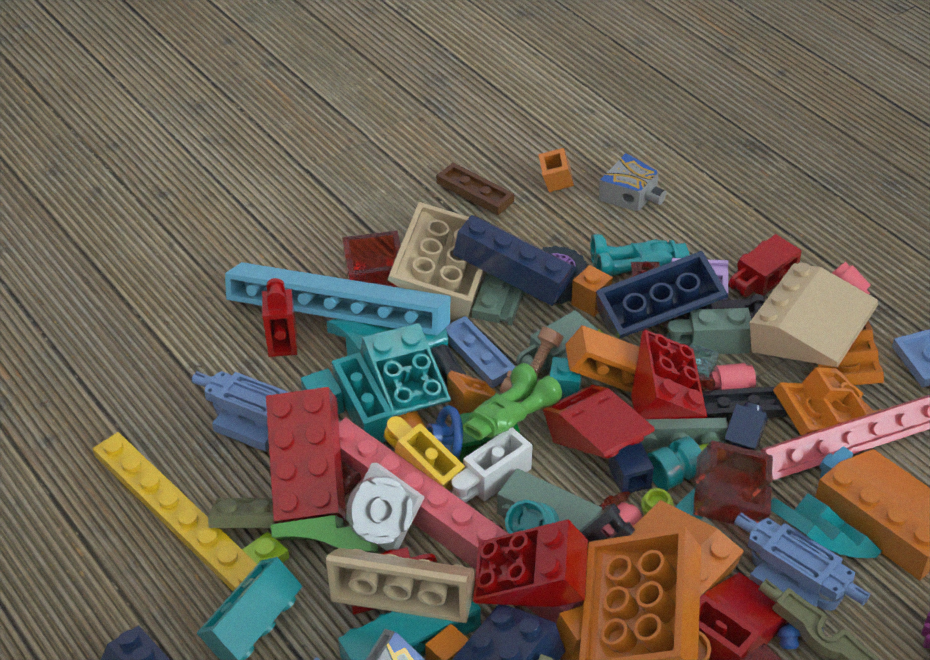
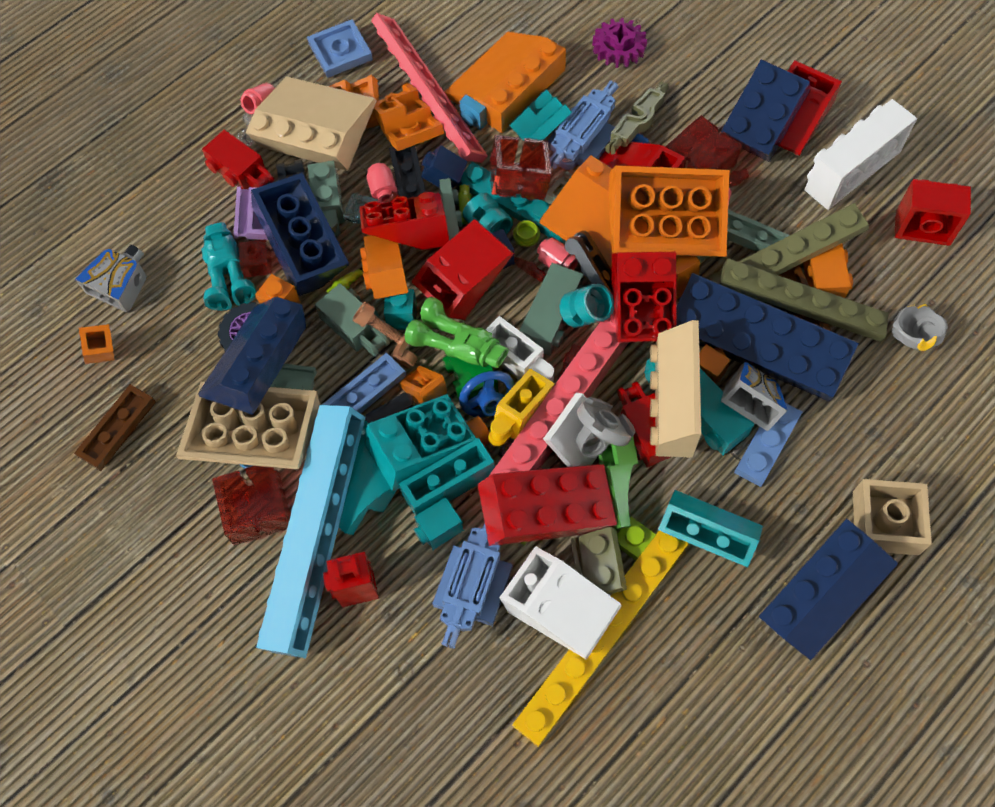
camera: 95 degrees left, 20 degrees up
(212, 466) = (559, 602): none -> white slope

